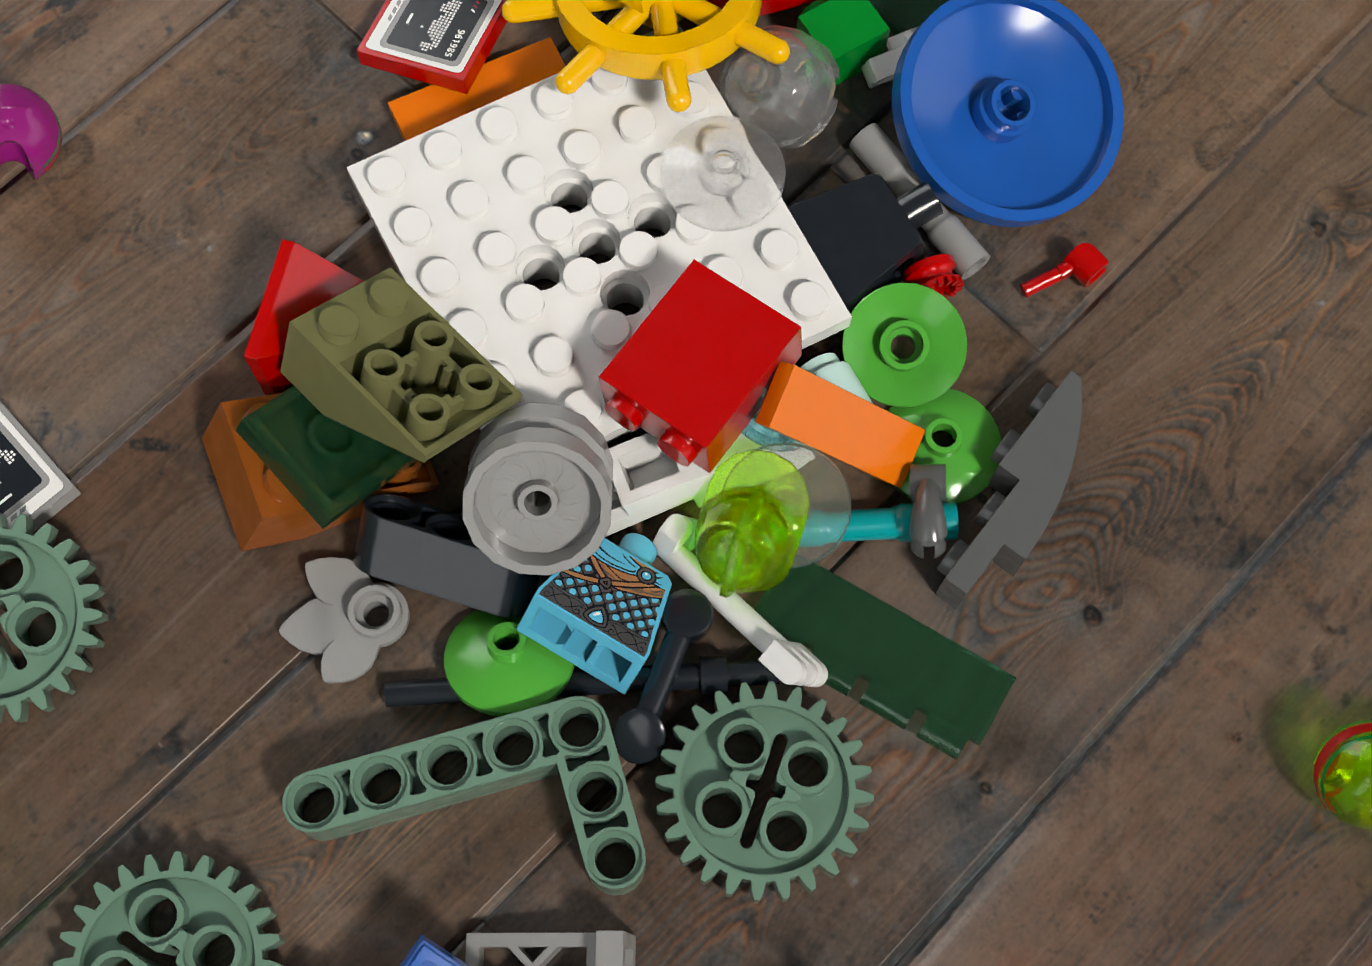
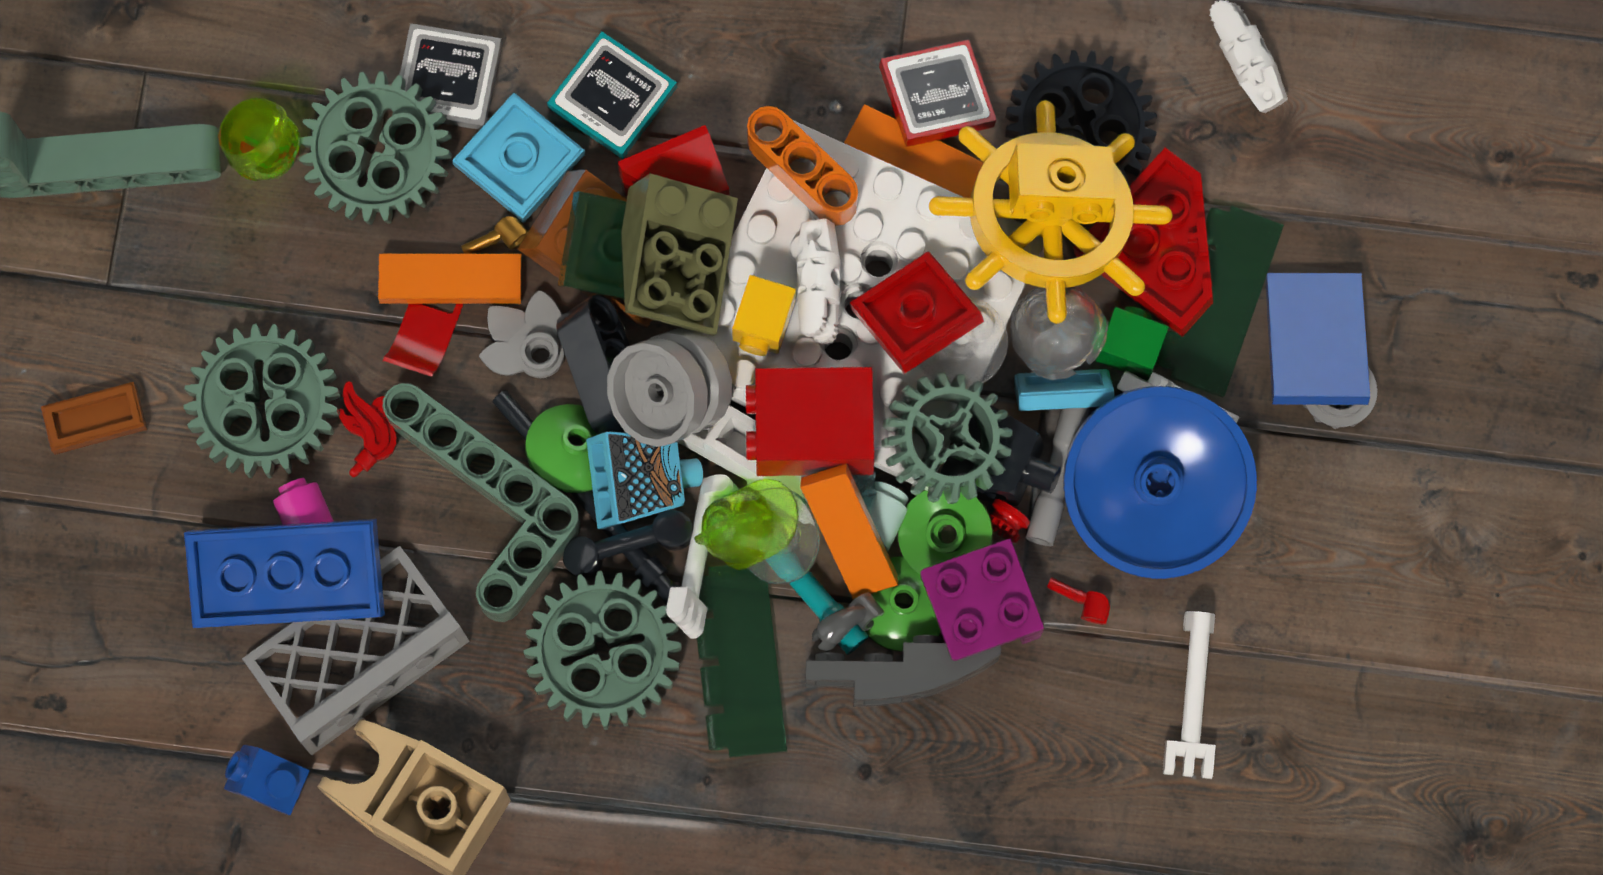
camera: 55 degrees right, 5 degrees up
(142, 477) = (518, 157): none -> medium azure plate
(160, 335) = (612, 95): none -> tile
(210, 650) = (449, 279): none -> orange tile
(211, 546) = (507, 229): none -> pearl gold hand
(246, 721) = (423, 338): none -> red piece
(302, 862) = (370, 425): none -> red piece
(384, 163) = (794, 145): none -> orange beam
(541, 333) = (763, 316): none -> yellow brick
(546, 253) = (818, 280): none -> white hinge
(664, 182) = (916, 312): none -> red tile
(815, 271) = (929, 428): none -> sand green gear
(856, 112) = (1081, 390): none -> medium azure tile
(1011, 354) = (982, 600): none -> magenta bracket
(1300, 287) = (1200, 627): none -> white hinge

